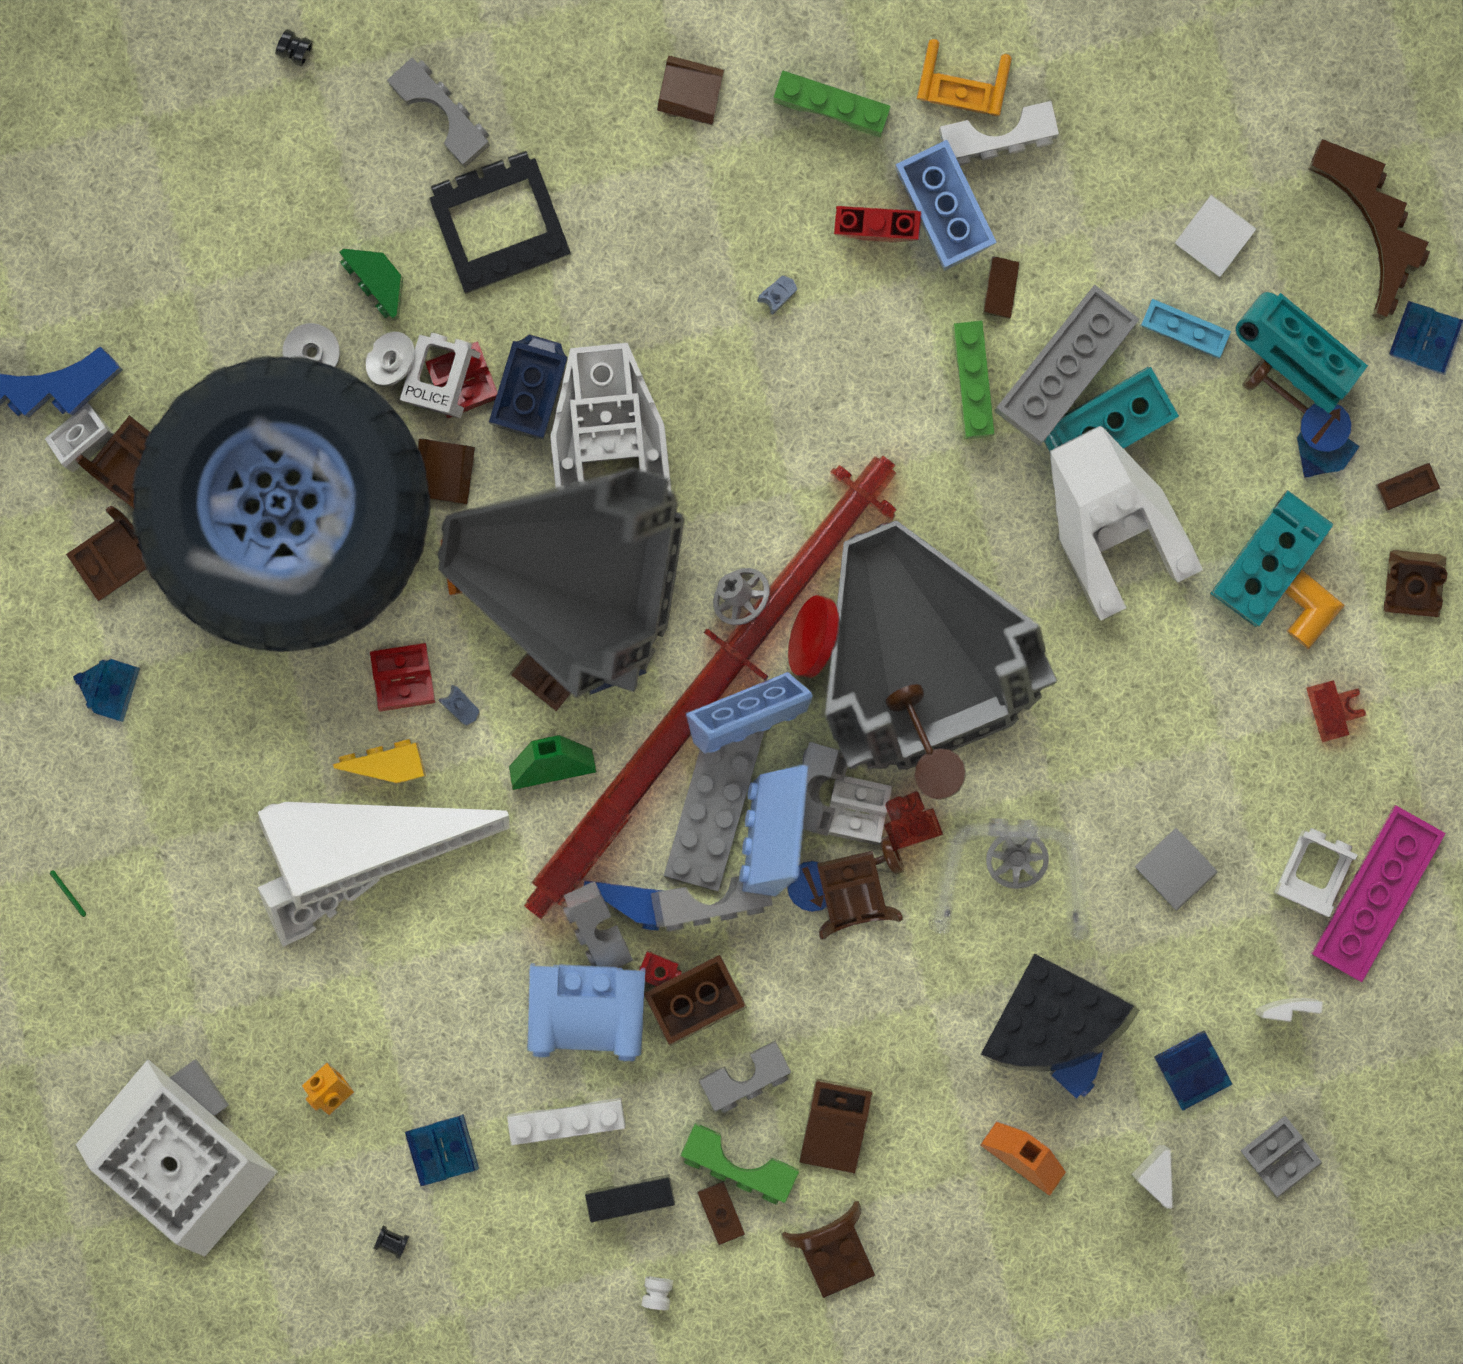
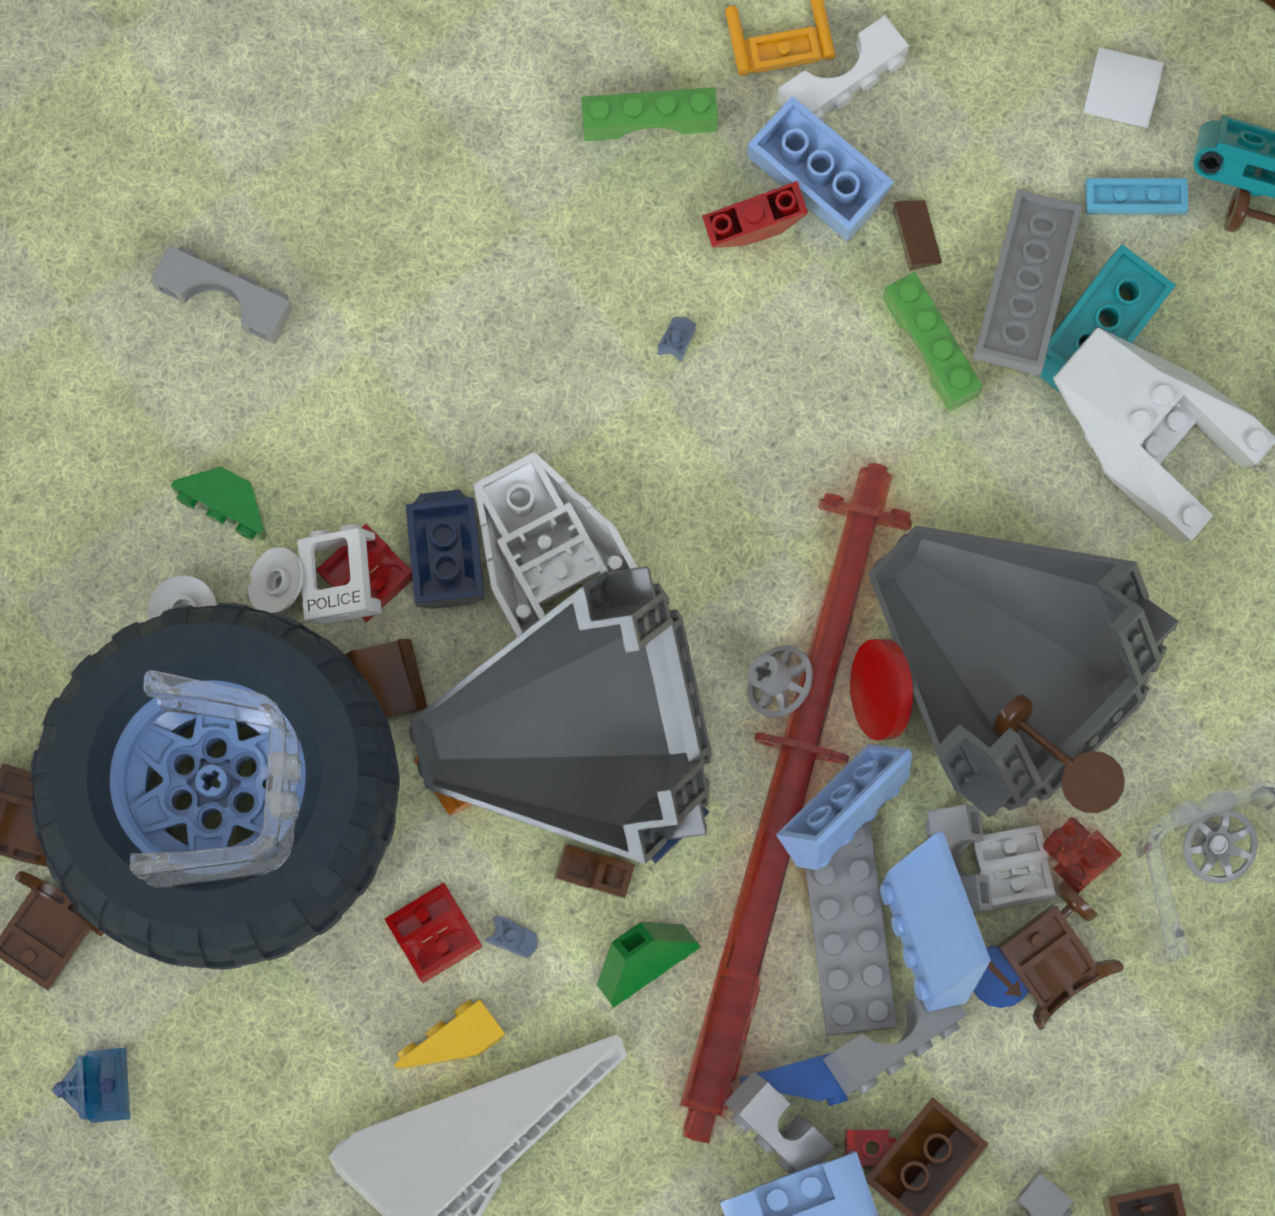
camera: 25 degrees left, 10 degrees down
(293, 47) = (32, 289): black wheel -> none
(512, 259) = (363, 423): black hinge -> none
(690, 90) = (489, 163): reddish brown slope -> none

